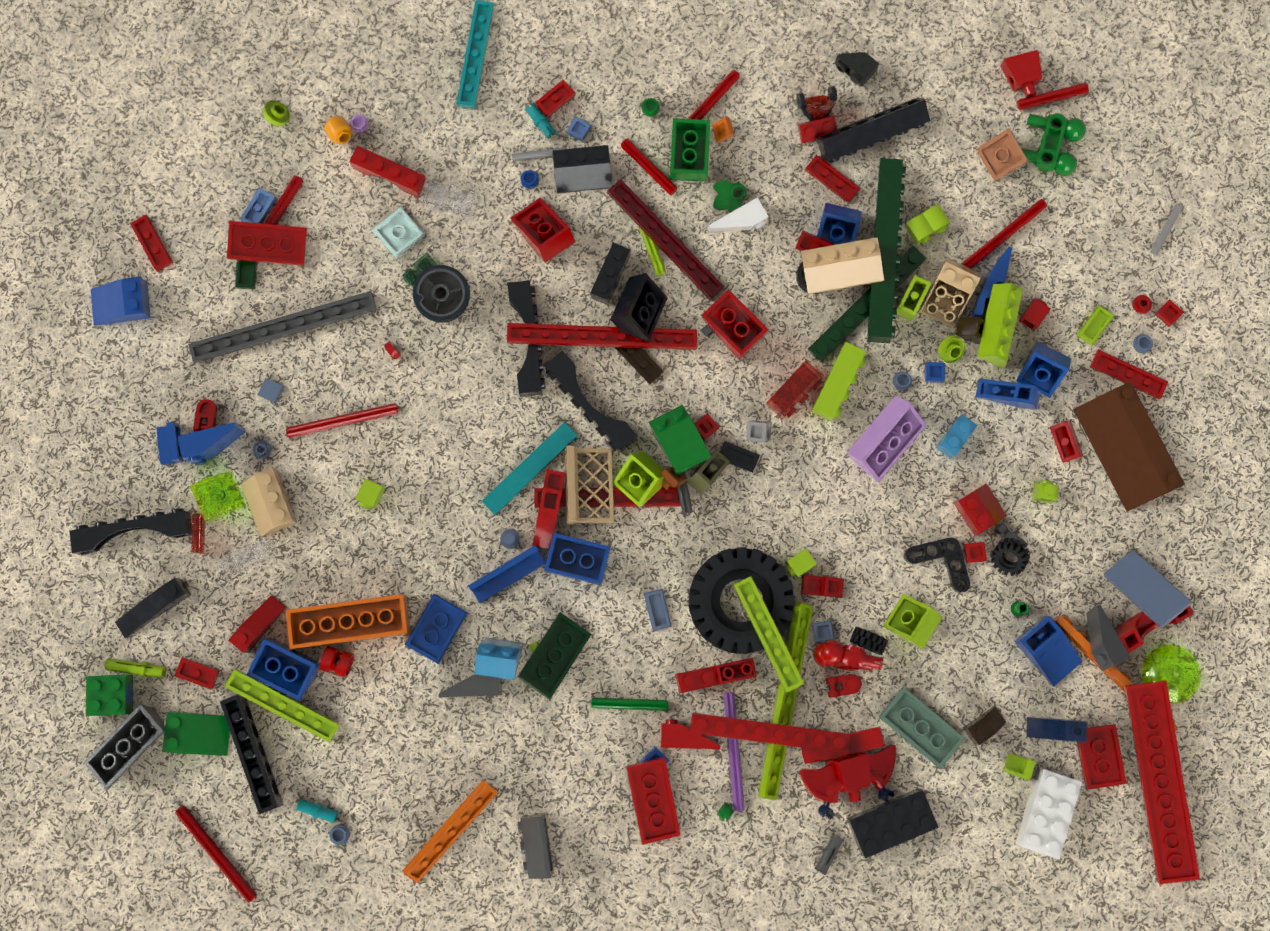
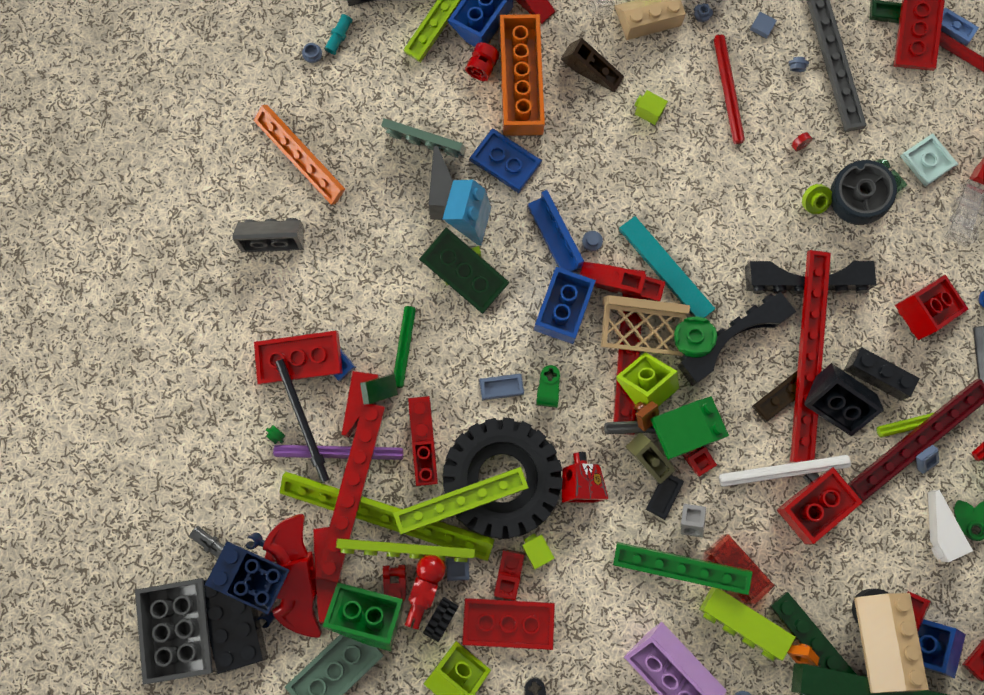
camera: 90 degrees right, 5 degrees down
(312, 355) = (798, 64): none -> sand blue plate
(330, 554) = (589, 63): none -> dark brown slope
(423, 716) = (417, 136): none -> sand green plate
(450, 334) = (817, 199): none -> lime plate
(595, 438) = (695, 336): none -> green tile
(657, 567) = (548, 390): none -> green piece
(675, 720) = (378, 389): none -> dark green tile
(681, 233) = (927, 459): none -> sand blue tile
(706, 355) = (784, 470): none -> white axle
(736, 529) = (583, 481): none -> red torso
(745, 768) = (317, 460): none -> black bar
(800, 438) = (683, 568): none -> green plate
(816, 686) = (394, 549): none -> lime plate
(857, 811) = (247, 577): none -> dark blue slope
(858, 333) = (803, 654): none -> orange plate
(863, 582) = (508, 624): none -> red plate
(874, 707) = (364, 616): none -> green slope
(907, 872) = (173, 631): none -> dark grey slope

